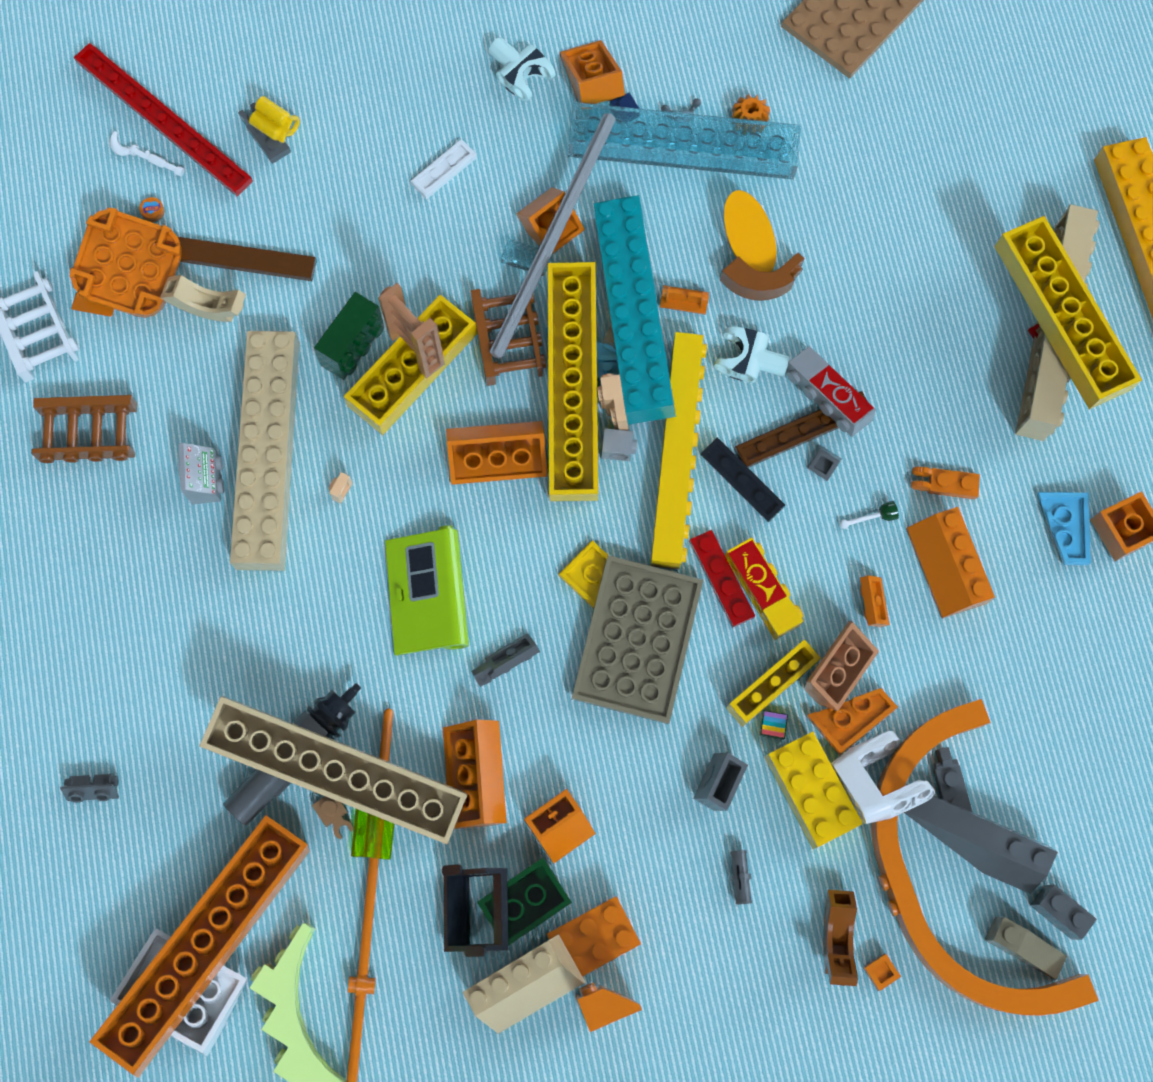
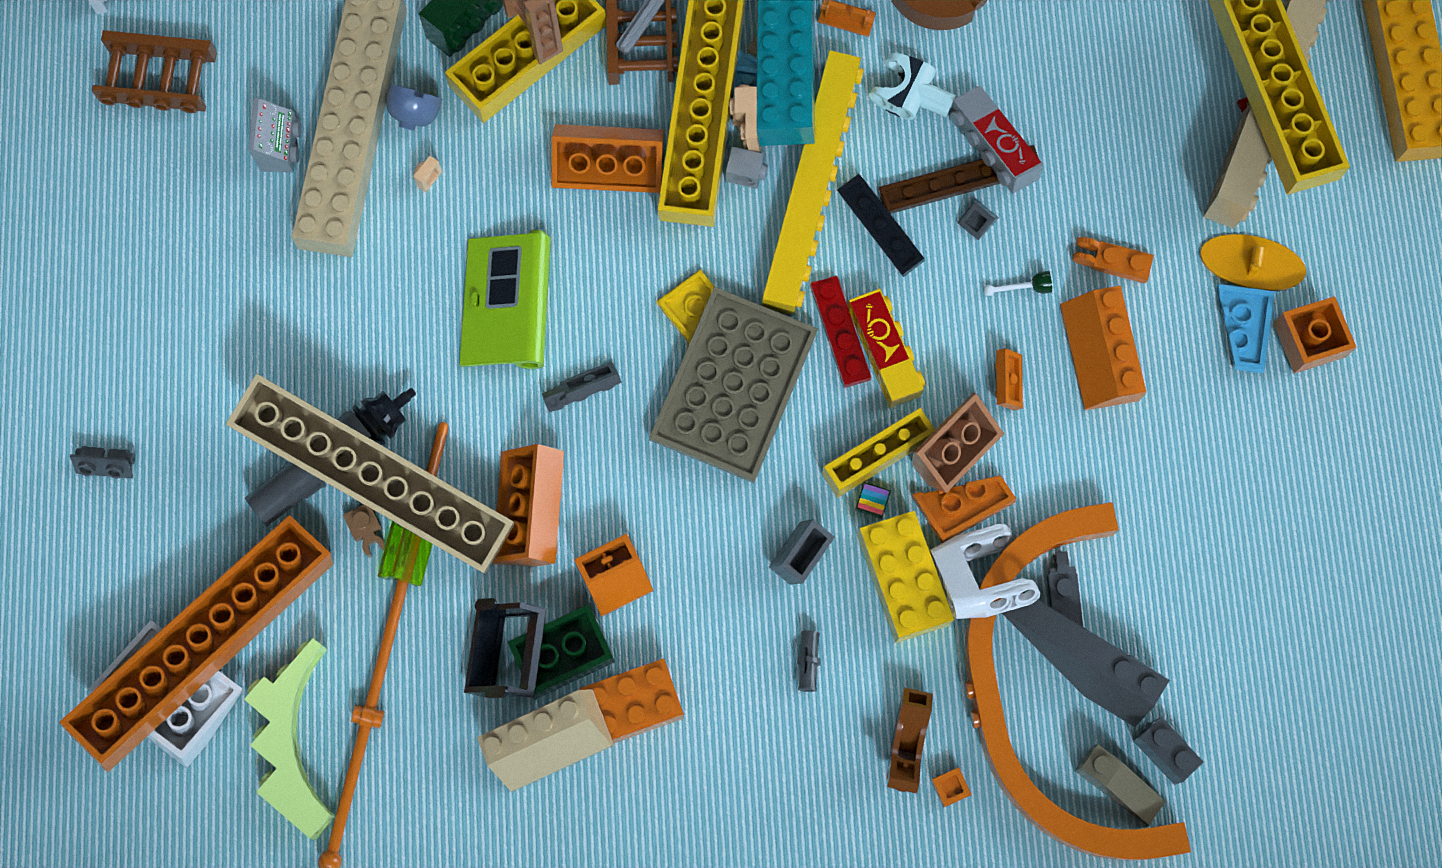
camera: 10 degrees right, 0 degrees up
(318, 430) = (412, 107): none -> sand blue cylinder
(604, 1006) = (629, 770): orange slope -> none
(1064, 468) = (1253, 262): none -> light orange shield

